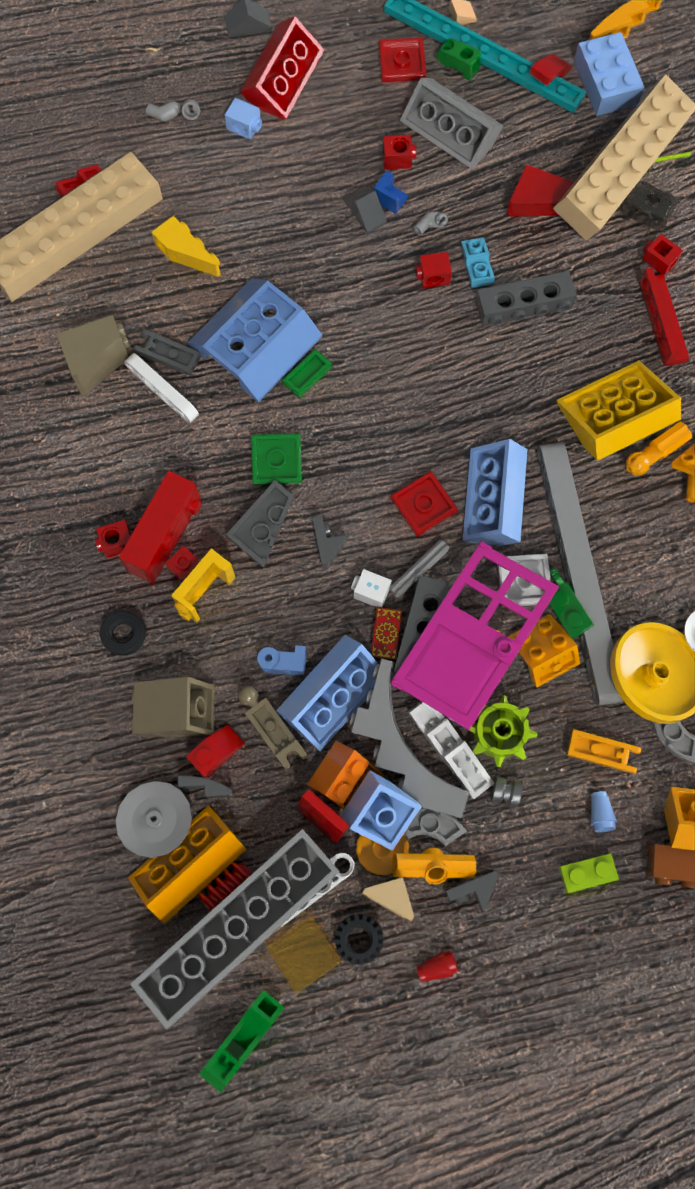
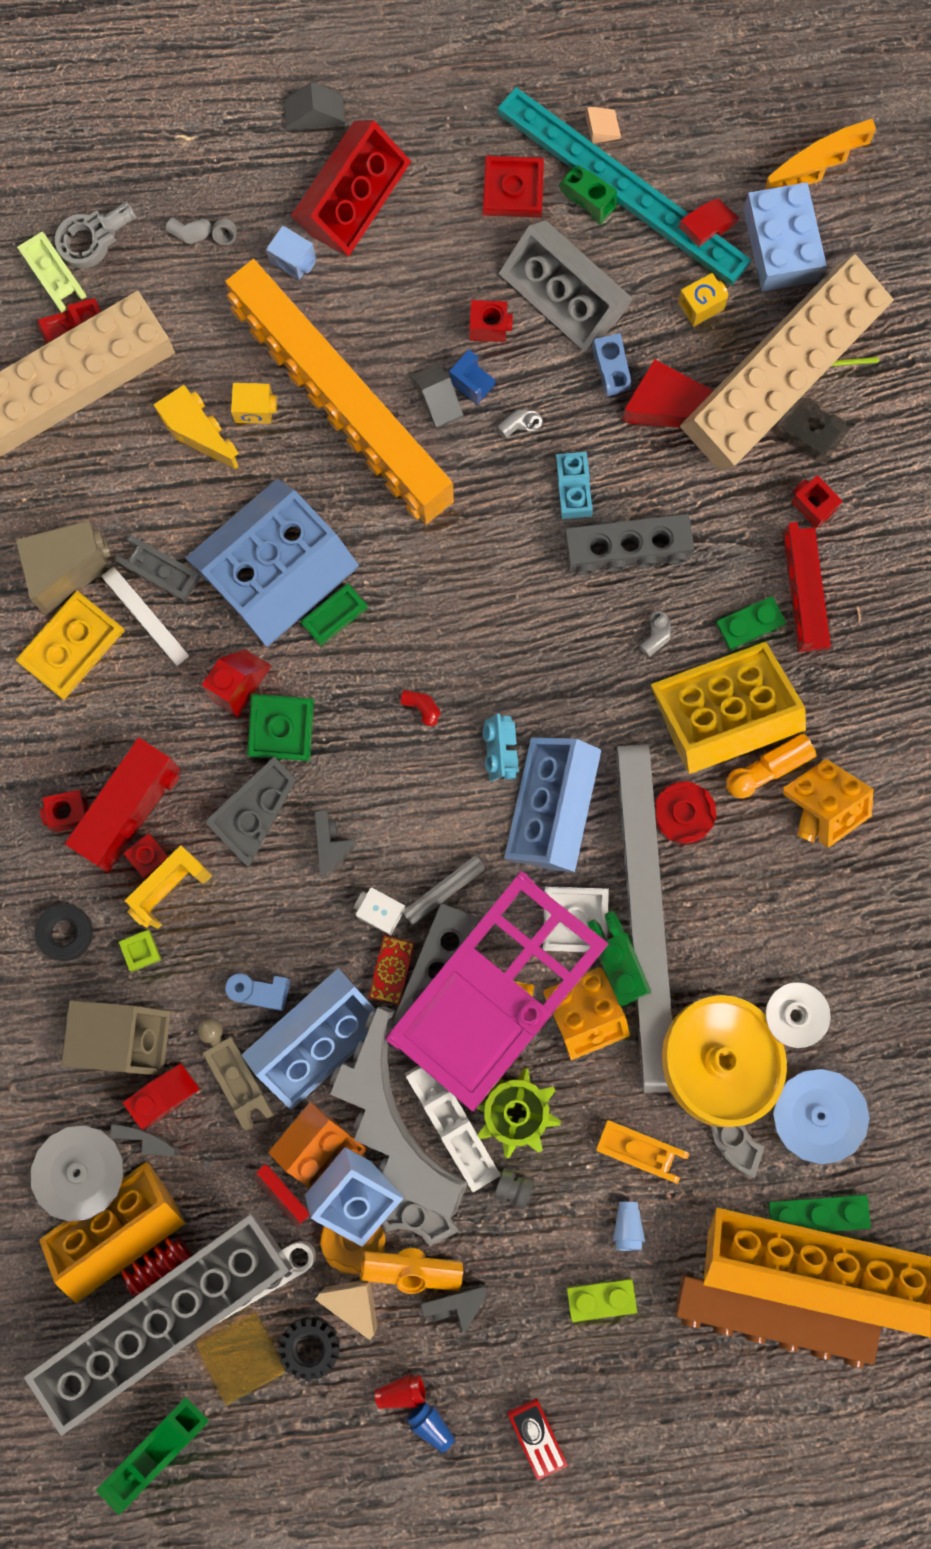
camera: 10 degrees right, 5 degrees up
(61, 147) = (50, 269): none -> yellowish green hinge
(94, 112) = (102, 230): none -> light grey pin
(104, 416) = (70, 645): none -> yellow tile
(185, 640) = (140, 951): none -> lime plate
(227, 226) = (253, 403): none -> yellow brick
(235, 428) = (235, 680): none -> red slope
(293, 210) = (339, 392): none -> light orange brick
(386, 431) = (425, 704): none -> red arm
(424, 504) = (461, 805): red tile -> none
(434, 270) = (514, 491): red brick -> none
(446, 447) = (497, 734): none -> medium azure hinge
(465, 991) = (430, 1426): none -> blue cone
(494, 173) = (612, 364): none -> medium blue leg
(553, 991) = (537, 1439): none -> slope
(555, 122) = (703, 299): none -> yellow brick
(558, 362) = (659, 633): none -> light grey arm
(598, 491) = (684, 812): none -> red tile
(625, 348) = (750, 623): none -> green plate

